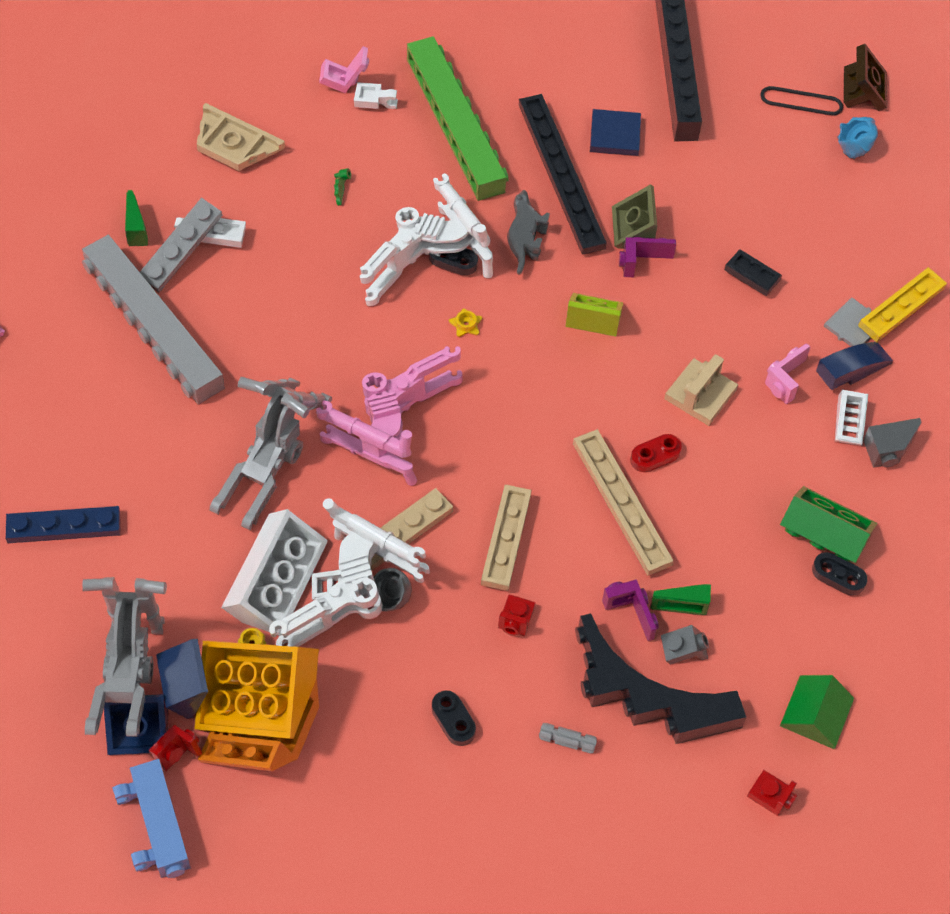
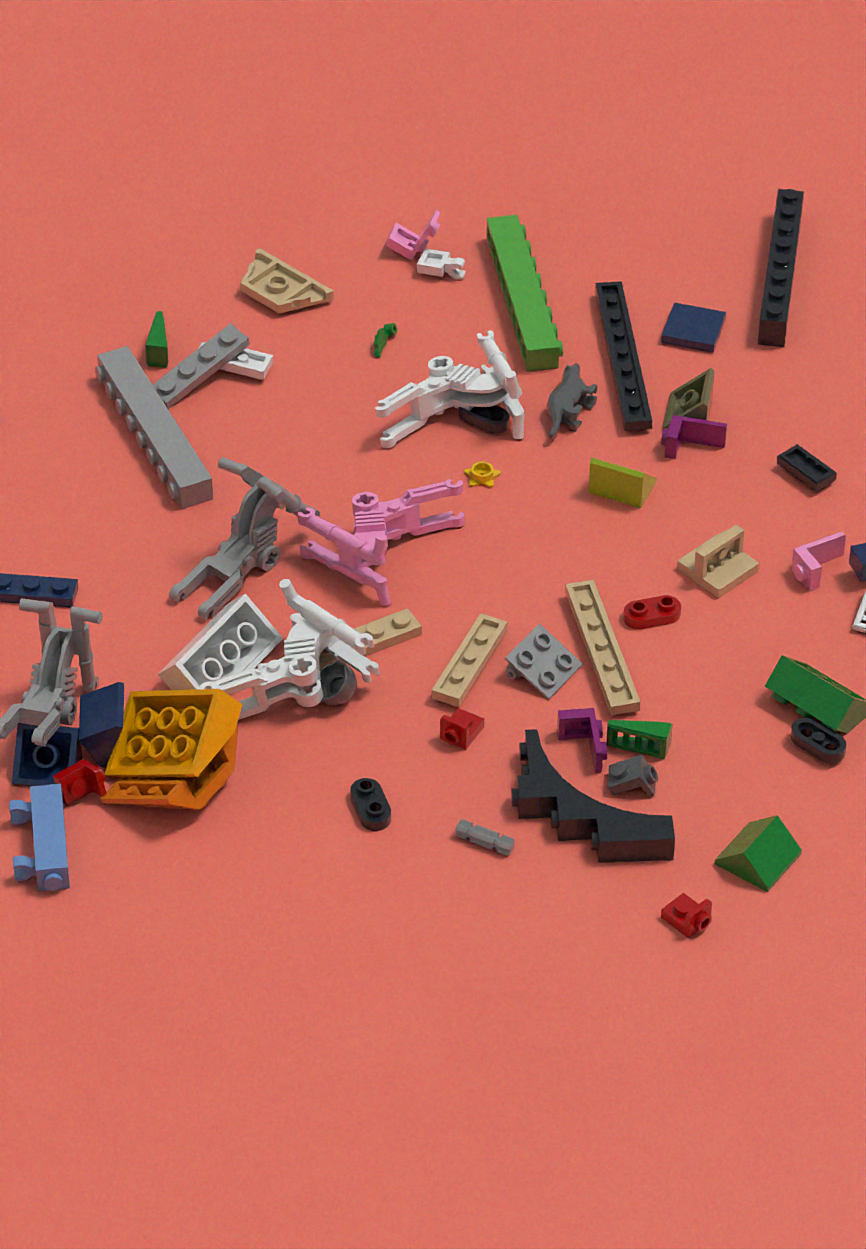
camera: 15 degrees right, 15 degrees down
(573, 528) = (542, 661): none -> light grey hinge

